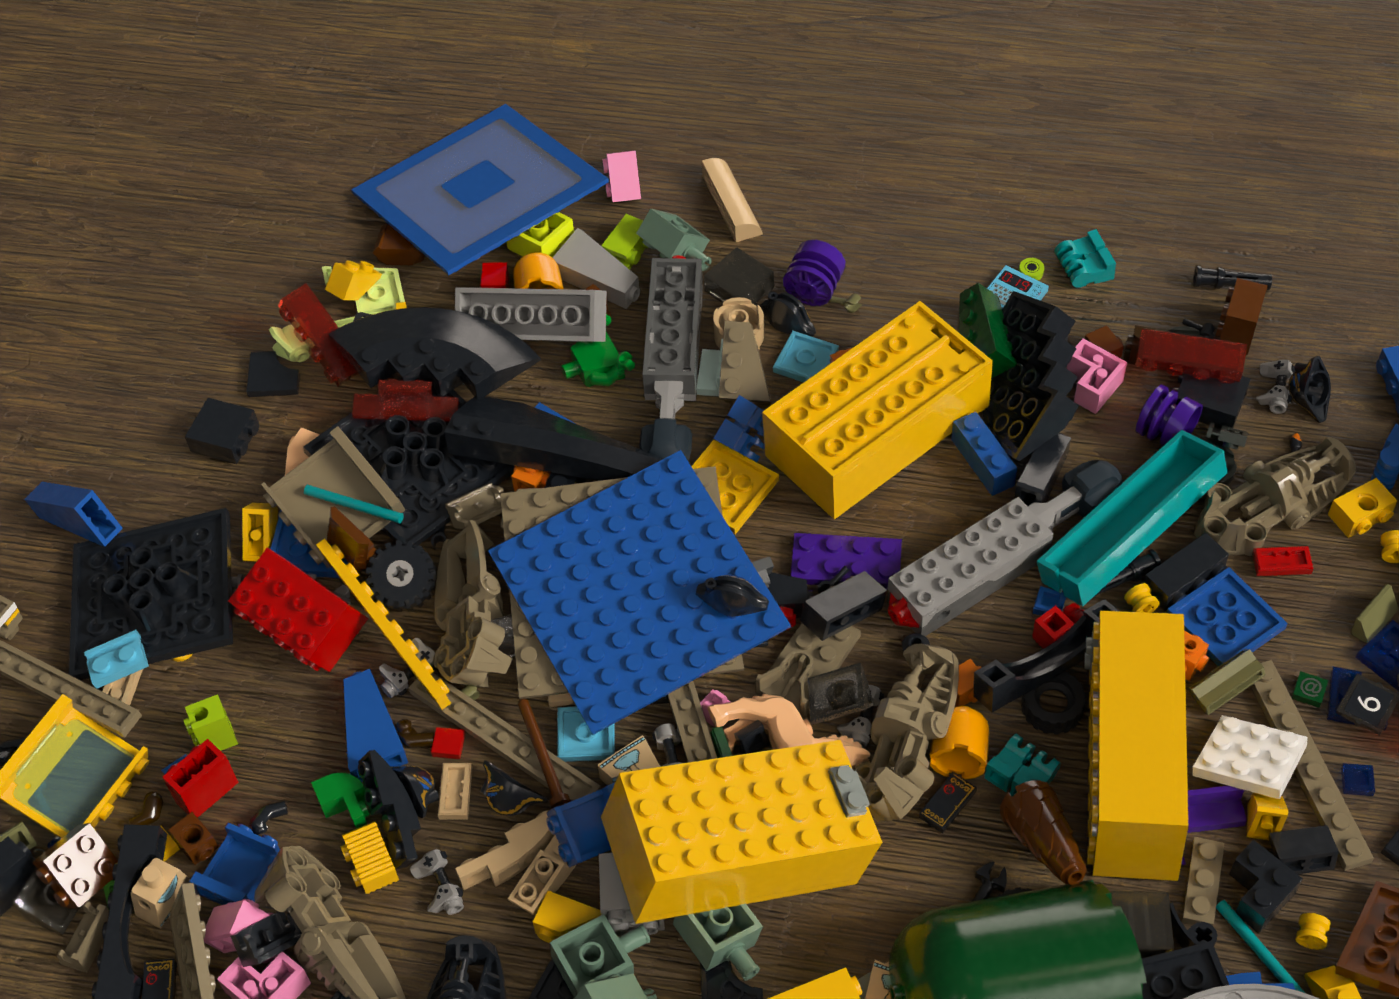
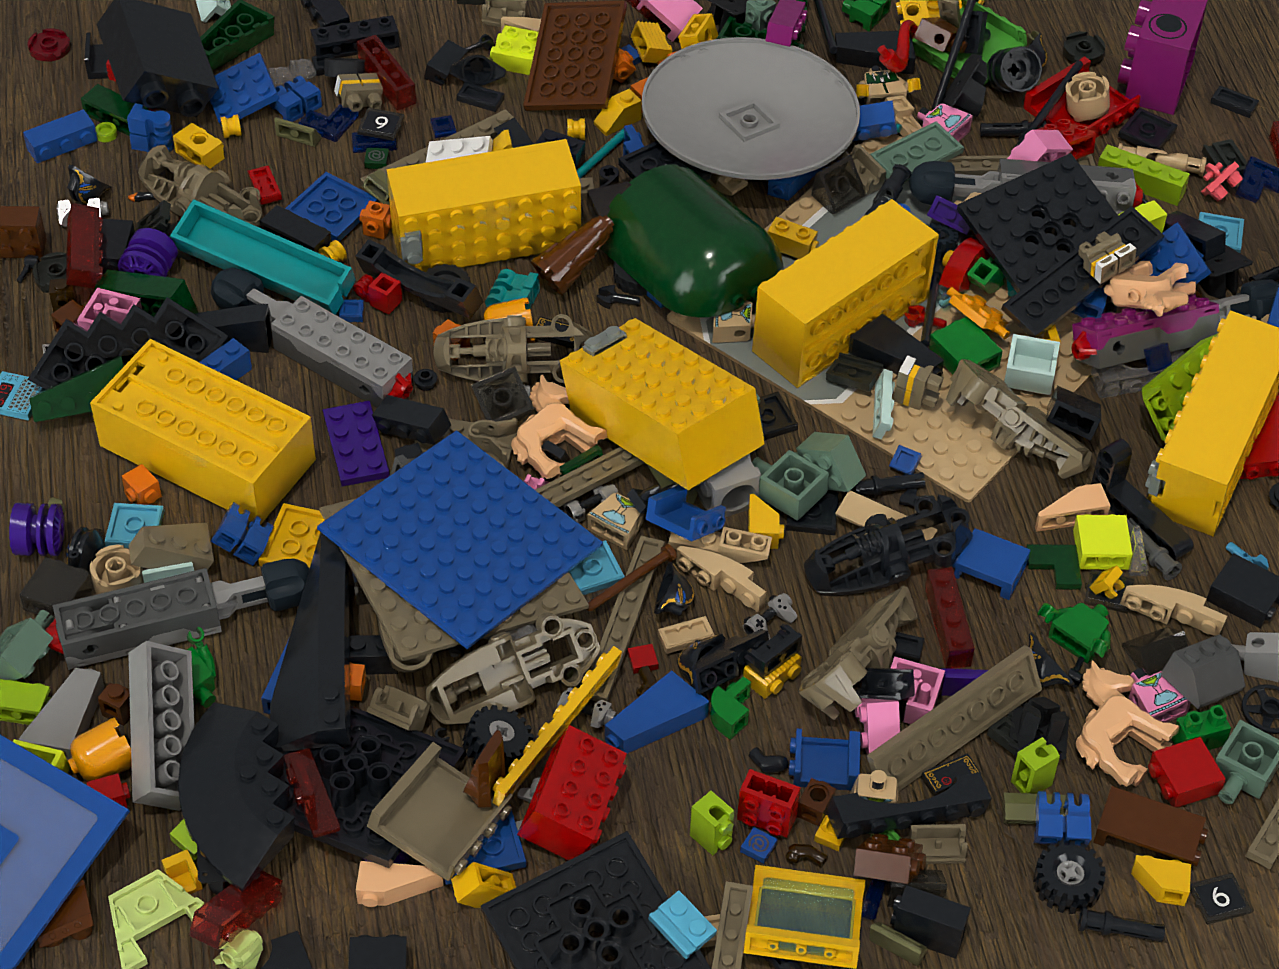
camera: 115 degrees left, 5 degrees down
(352, 279) = (146, 917): yellow slope -> none
(354, 504) = (442, 792): teal bar -> none
(372, 847) = (774, 651): none -> black hinge
(732, 595) = (450, 463): black hat -> none
(824, 585) = (389, 442): black hand -> none
(1111, 414) = (149, 288): none -> dark green wedge

